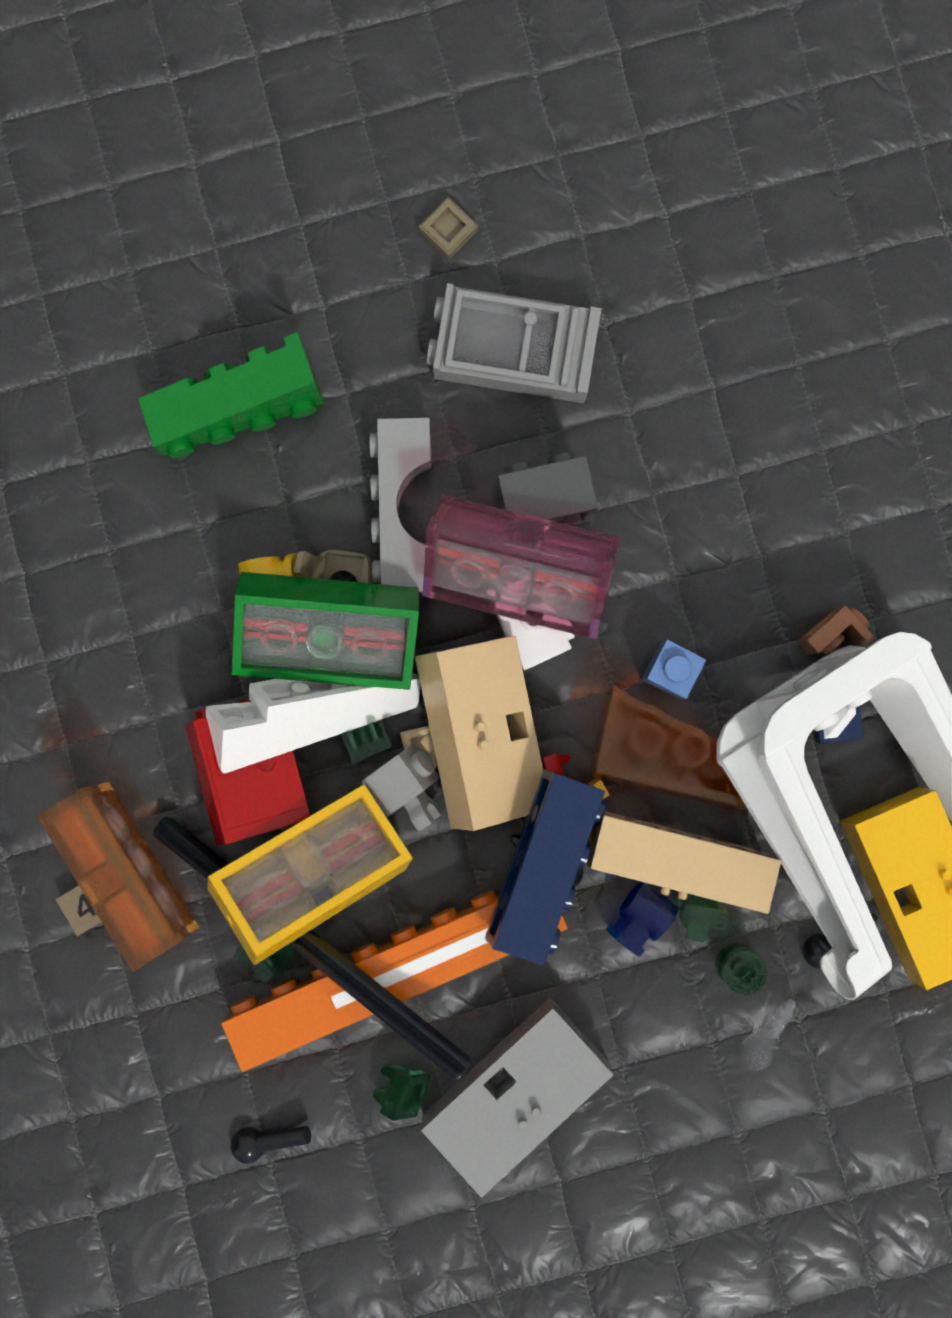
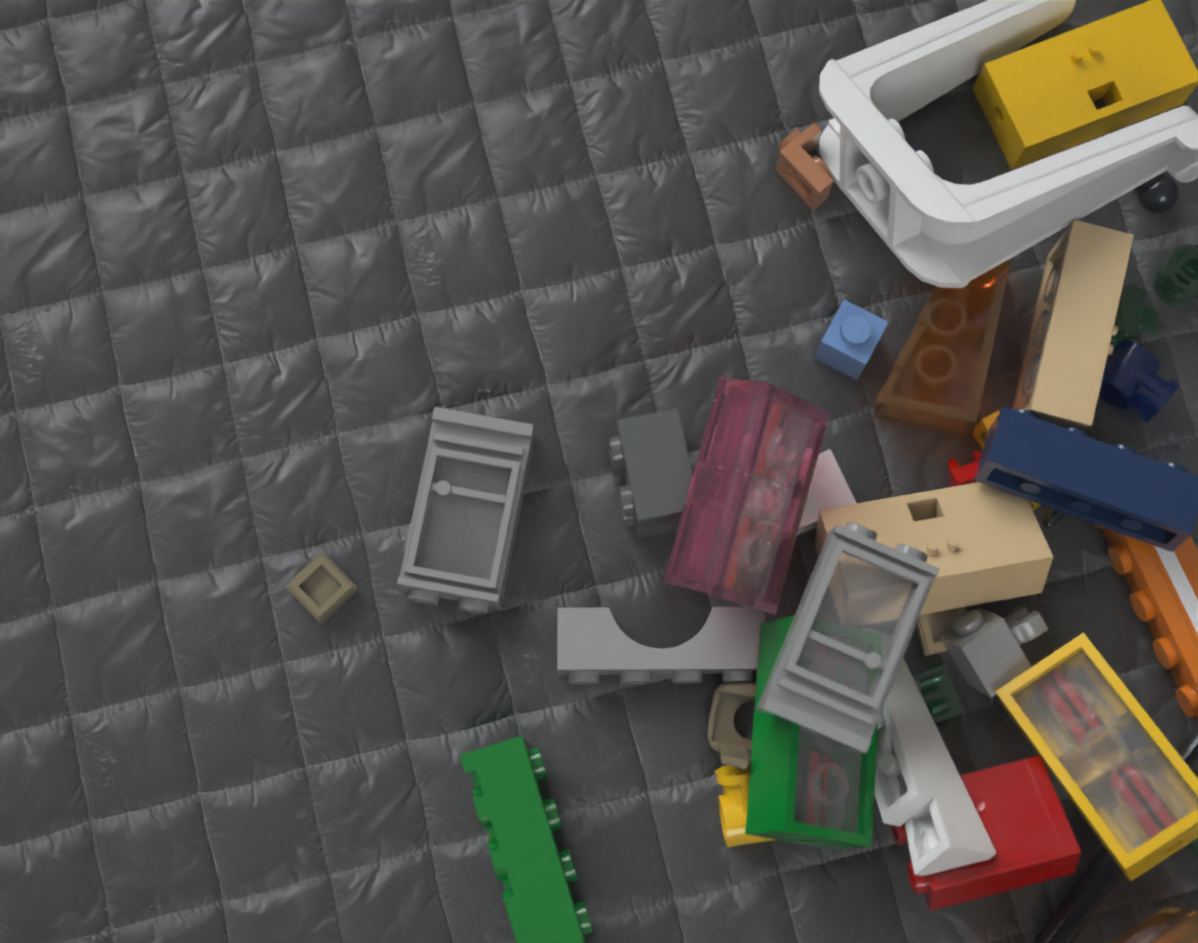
camera: 85 degrees left, 10 degrees down
(395, 648) = (848, 636): none -> light grey door

